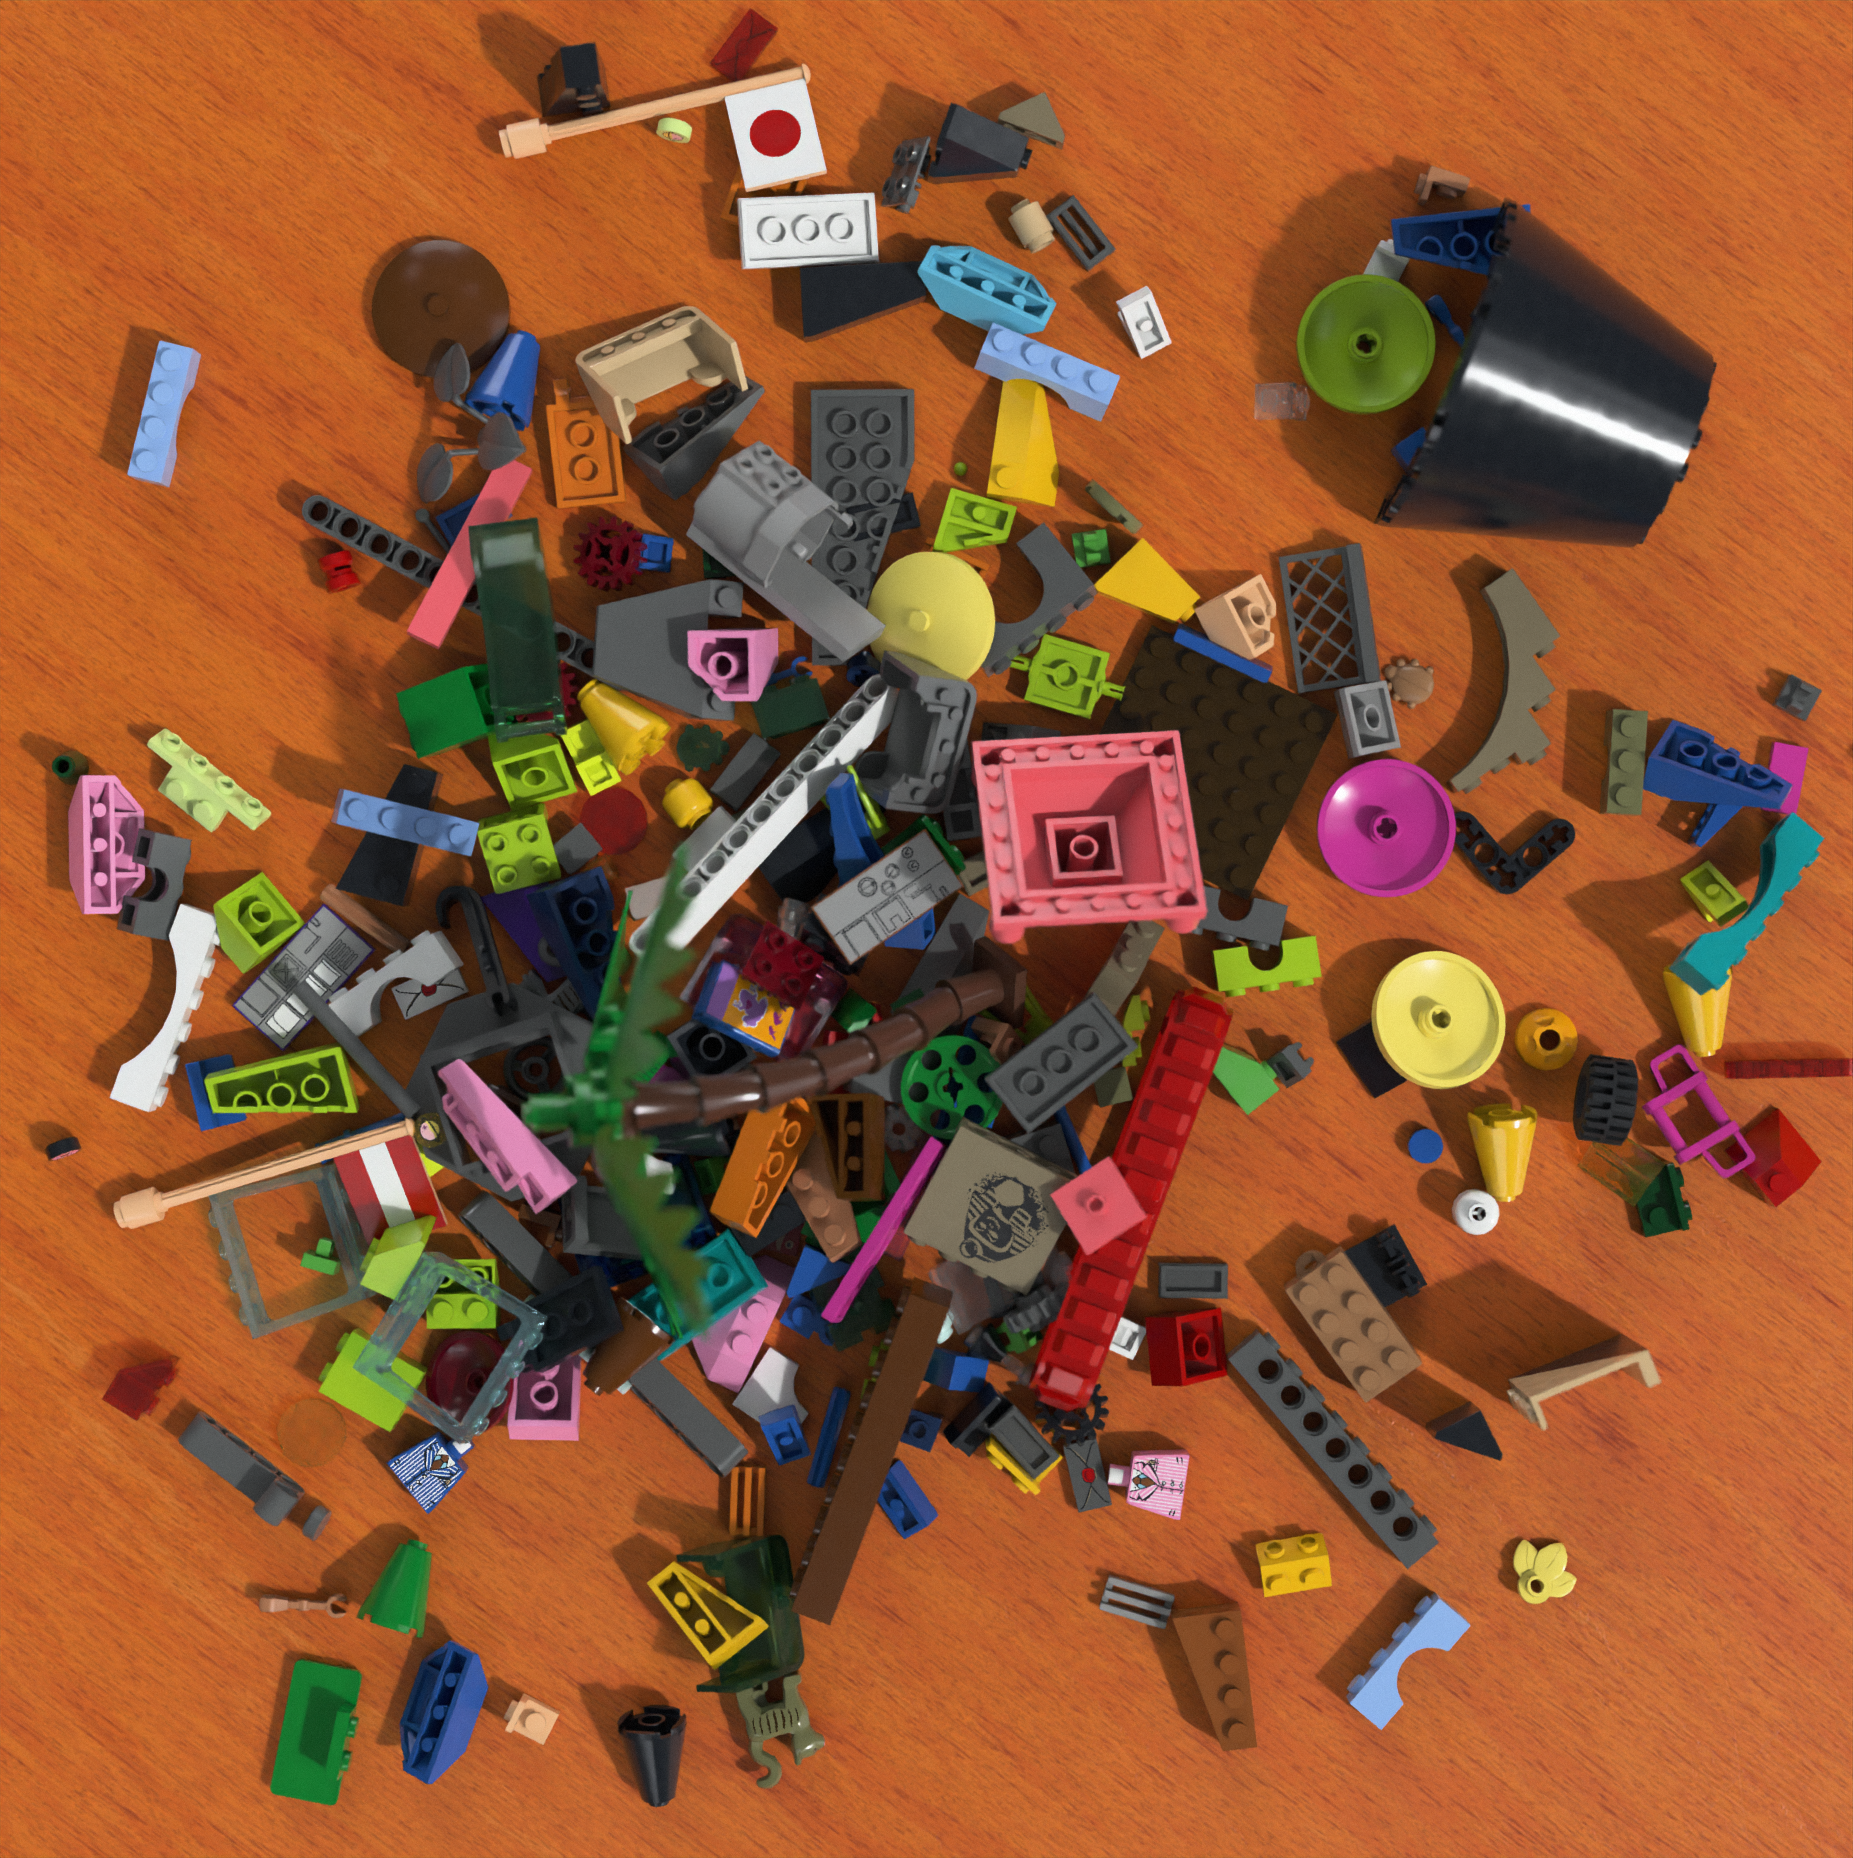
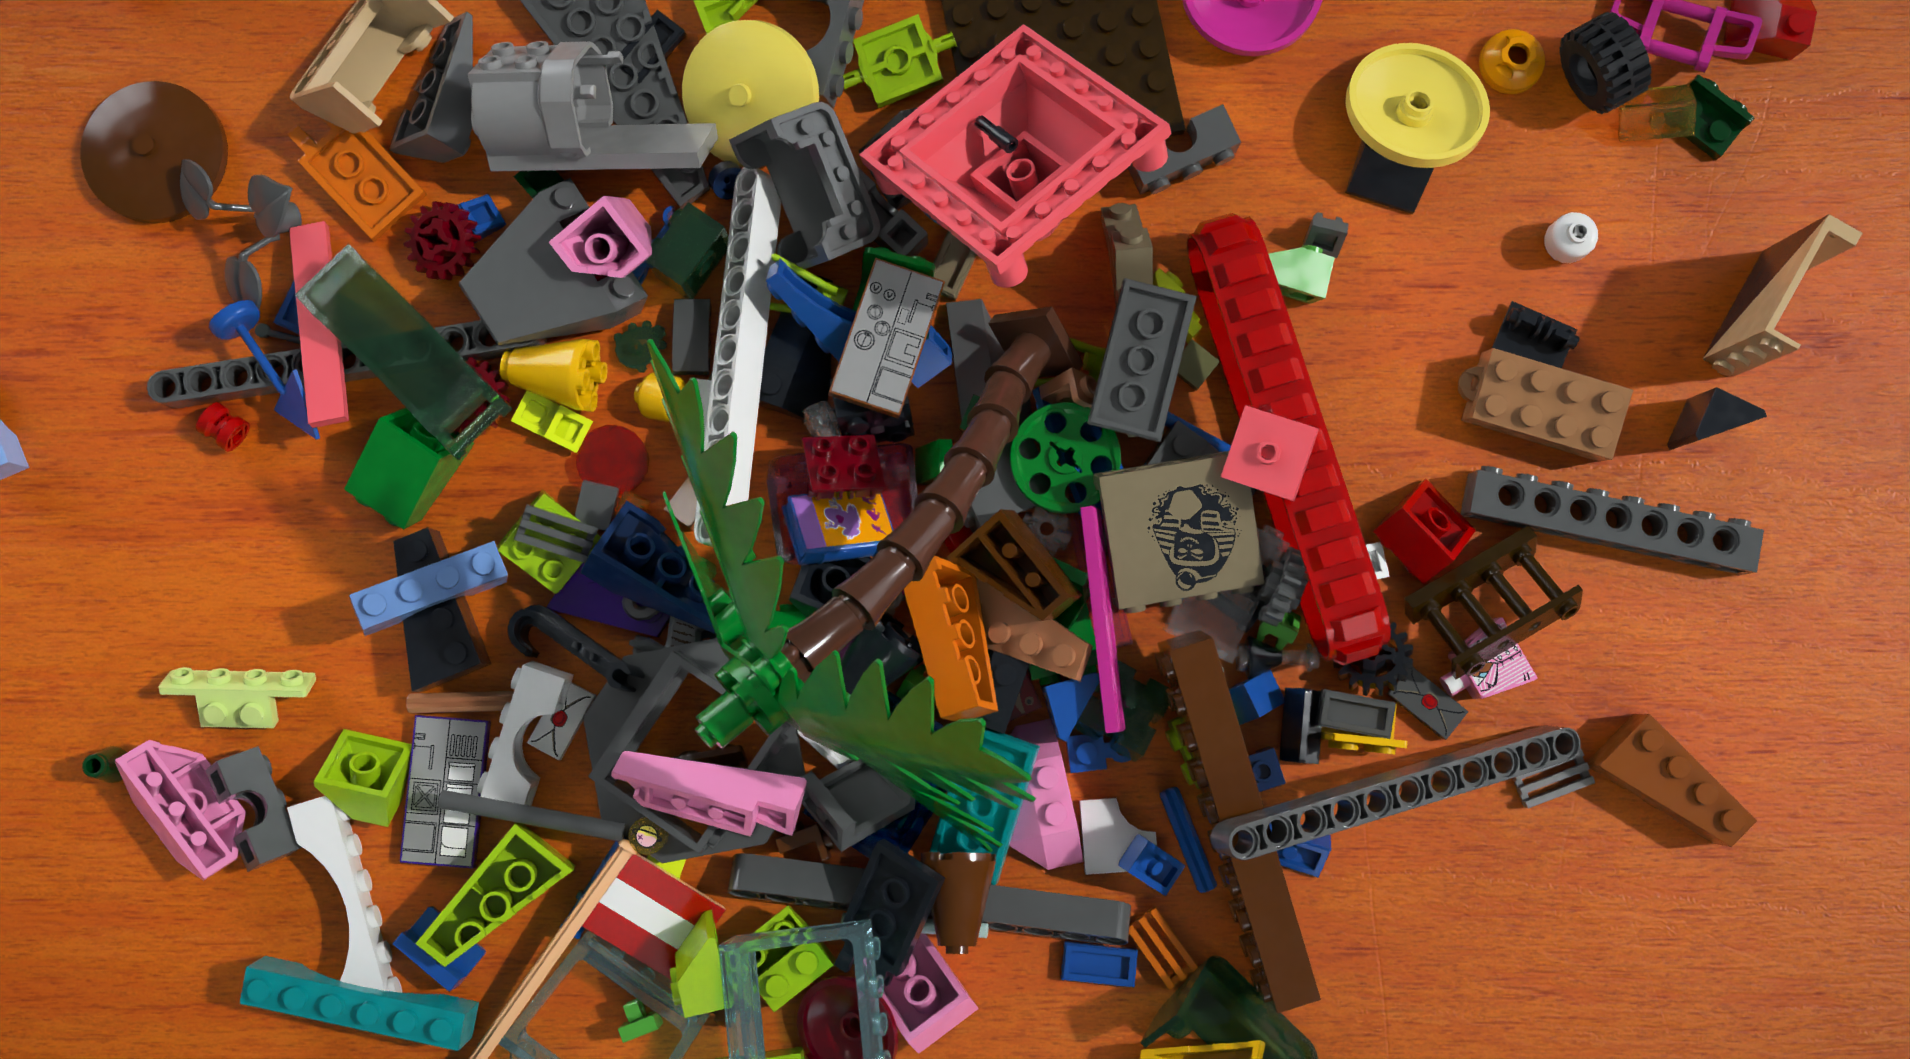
camera: 40 degrees left, 5 degrees down
(159, 1127) = (304, 993): none -> teal arch
(407, 596) = (237, 321): none -> blue piece
(509, 380) = (244, 154): blue cone -> none
(524, 1067) = (679, 729): dark grey piece -> none
(531, 769) = (507, 466): lime slope -> none
(546, 876) = (585, 543): none -> dark grey tile
(692, 1476) = (1099, 964): none -> blue tile
(994, 1511) = (1513, 757): none -> dark grey beam
(1088, 805) = (997, 134): none -> black pin
(1193, 1280) = (1385, 473): dark grey tile -> none
(1210, 1411) = (1489, 569): none -> dark brown fence
(1293, 1564) = (1657, 644): yellow bracket -> none
(1296, 963) = (1264, 147): lime arch -> none
(1425, 1145) = (1485, 219): blue tile -> none
(1433, 1626) = (1808, 692): light blue arch -> none
(1503, 1146) = (1551, 167): yellow cone -> none
(1546, 1568) = (1858, 488): light yellow plate -> none

